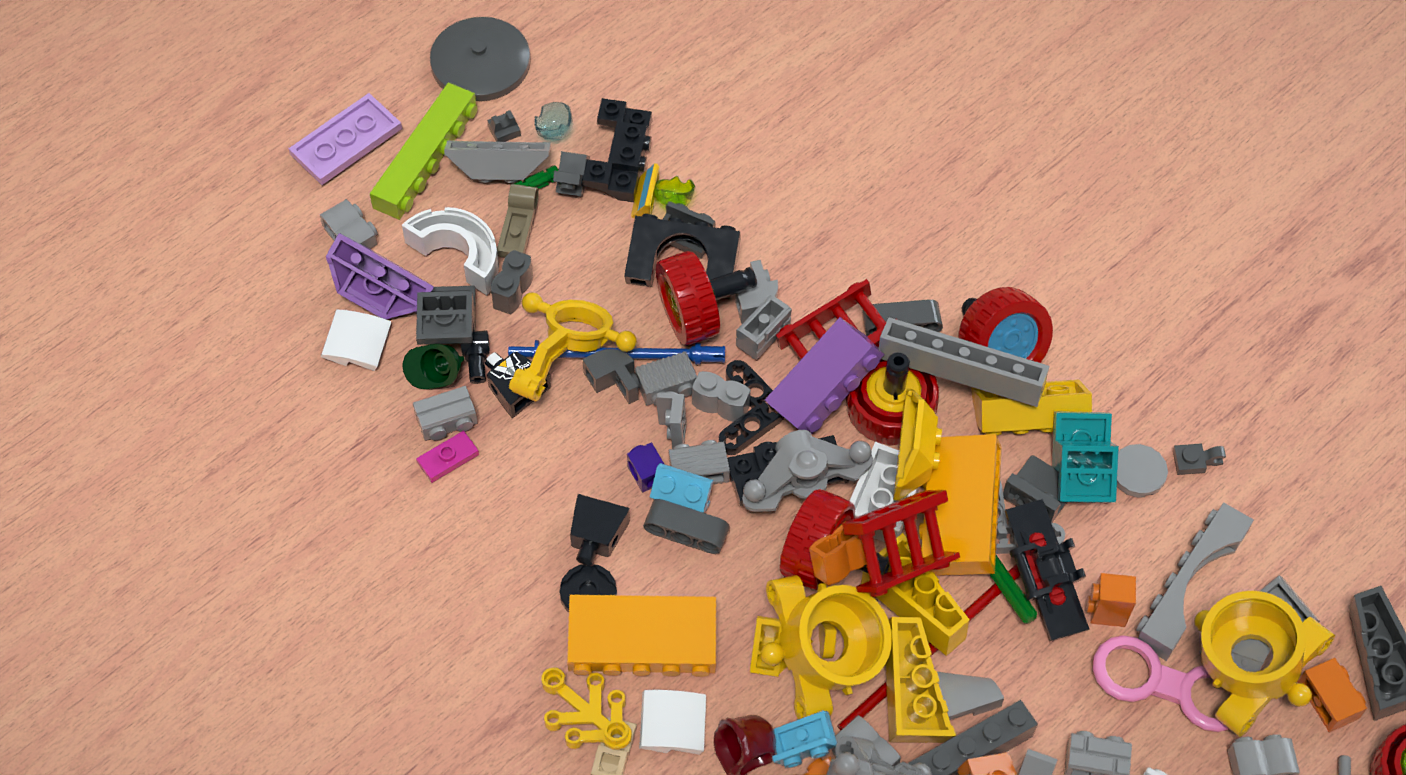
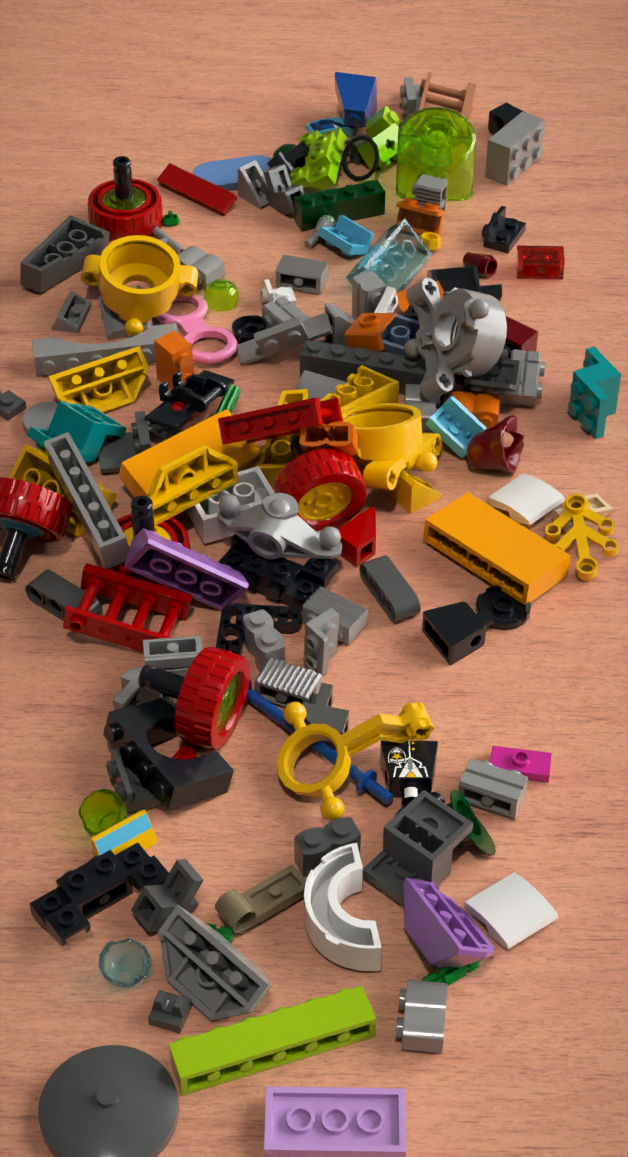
camera: 135 degrees left, 15 degrees down
(642, 464) = (374, 640): dark purple brick -> none
(681, 488) = (368, 596): medium azure bracket -> none
(758, 553) = (359, 538): none -> red slope
(1062, 714) = (283, 337): none -> light grey bracket
(1117, 717) = (246, 326): none -> black hat
(1144, 527) = (104, 382): none -> yellow wedge
(1200, 748) = (221, 295): none -> clear neon green hair

